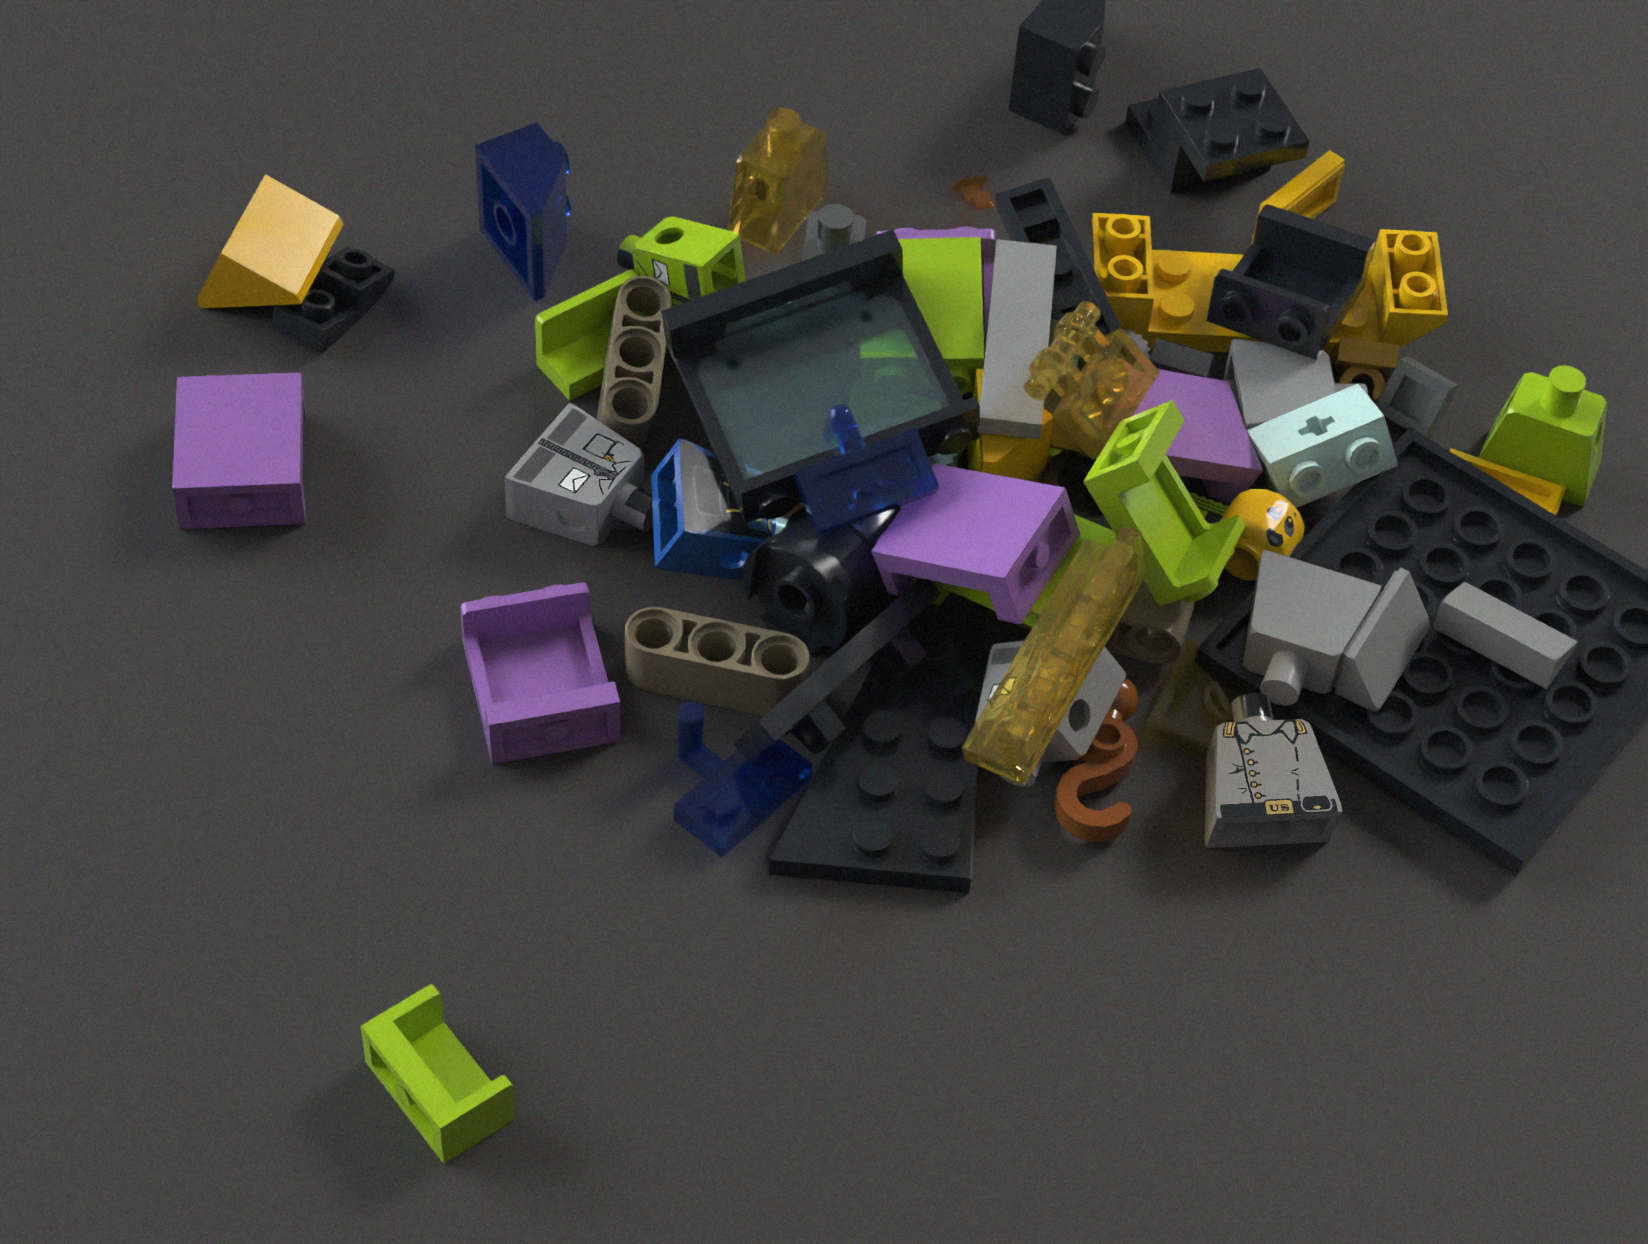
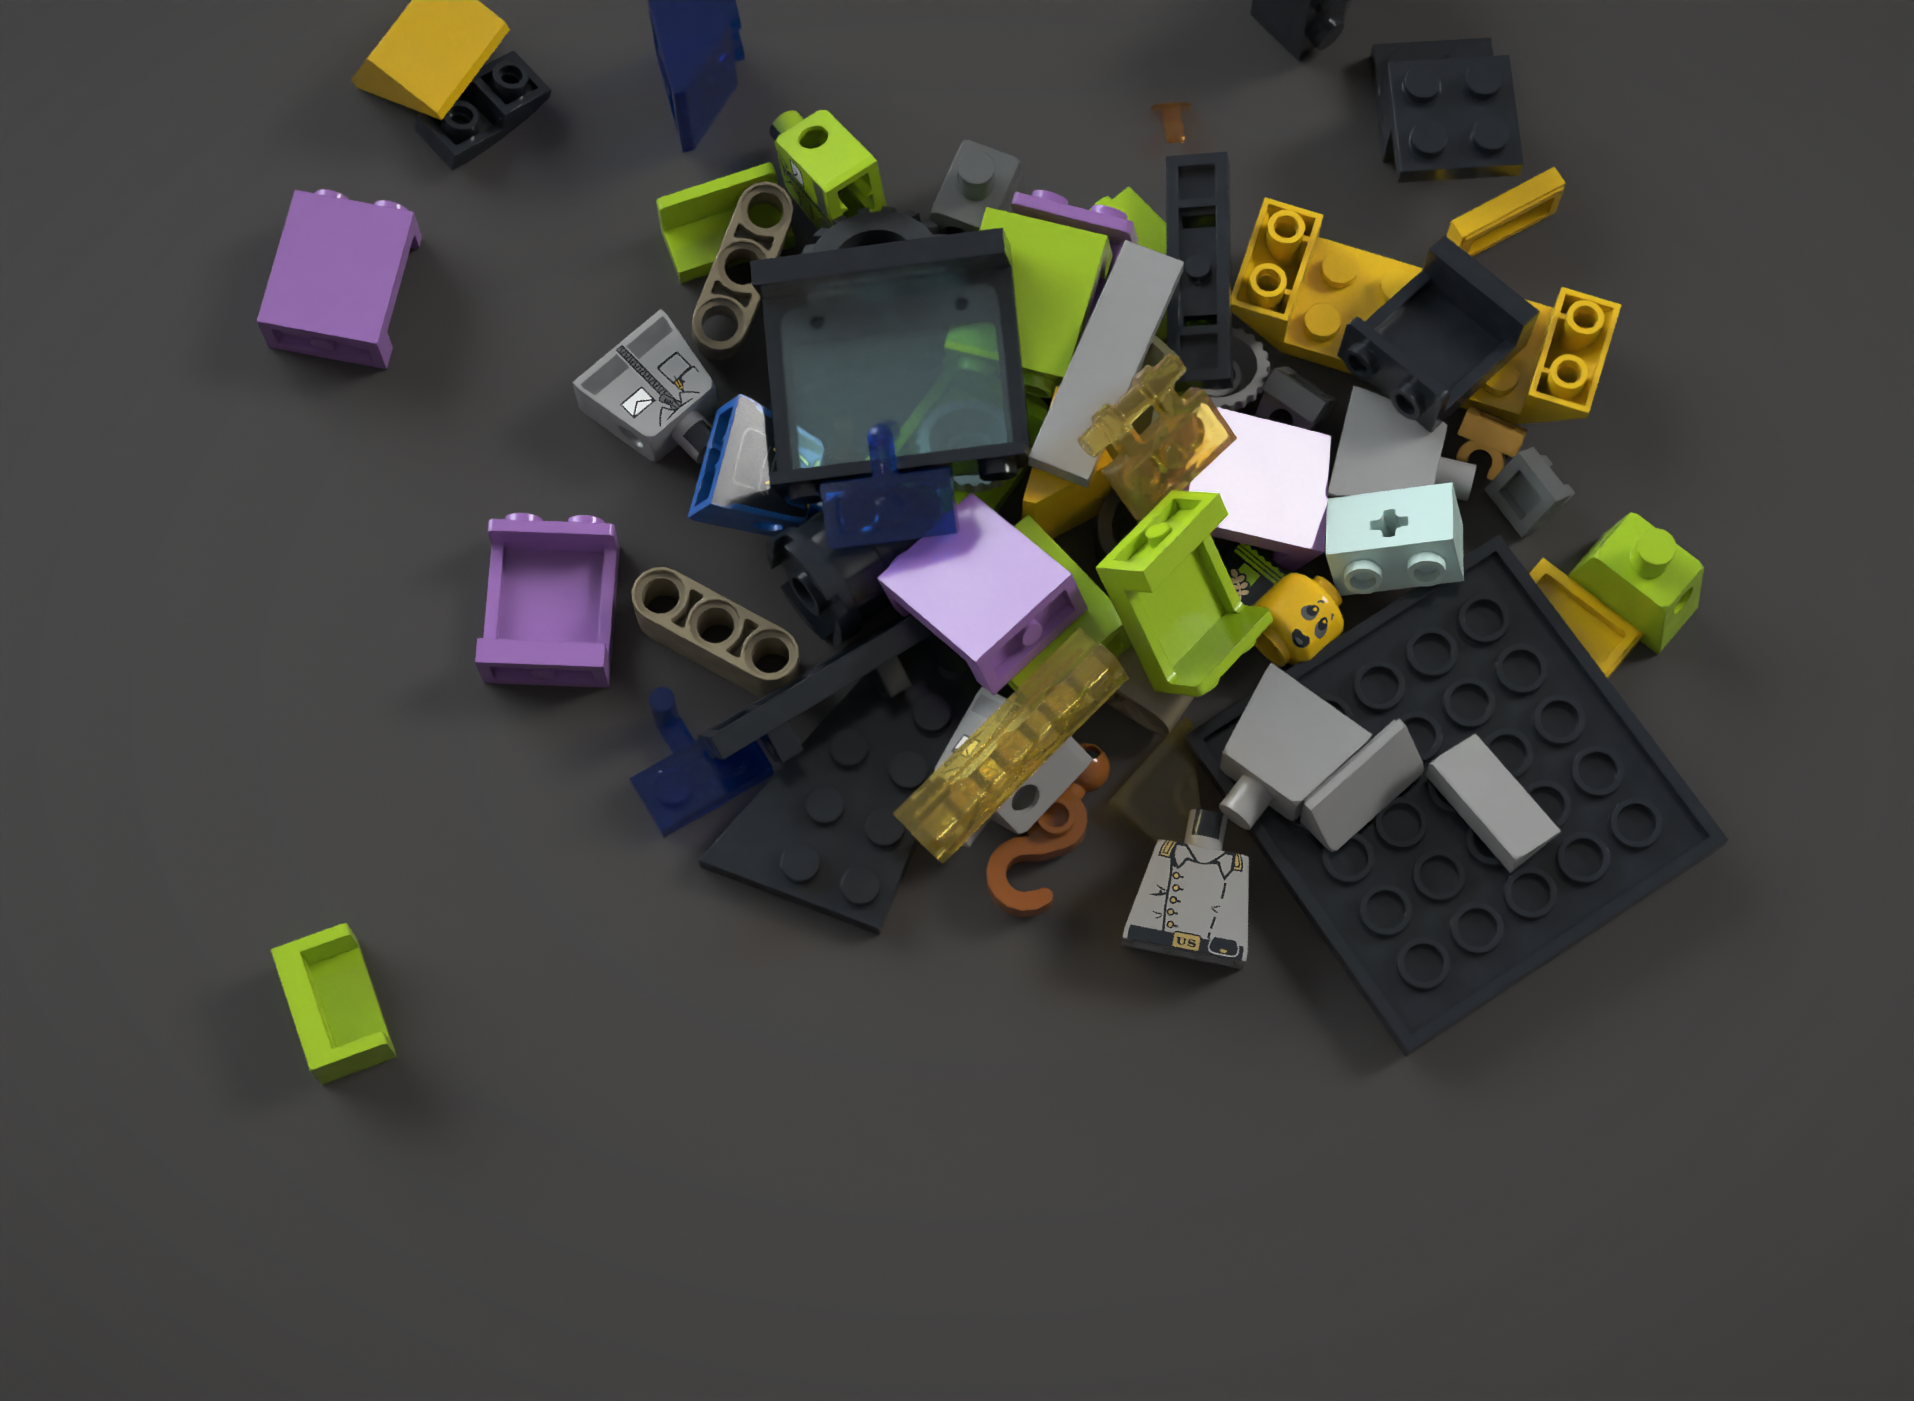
camera: 20 degrees right, 20 degrees up
(782, 165) = (966, 64): clear yellow torso -> none

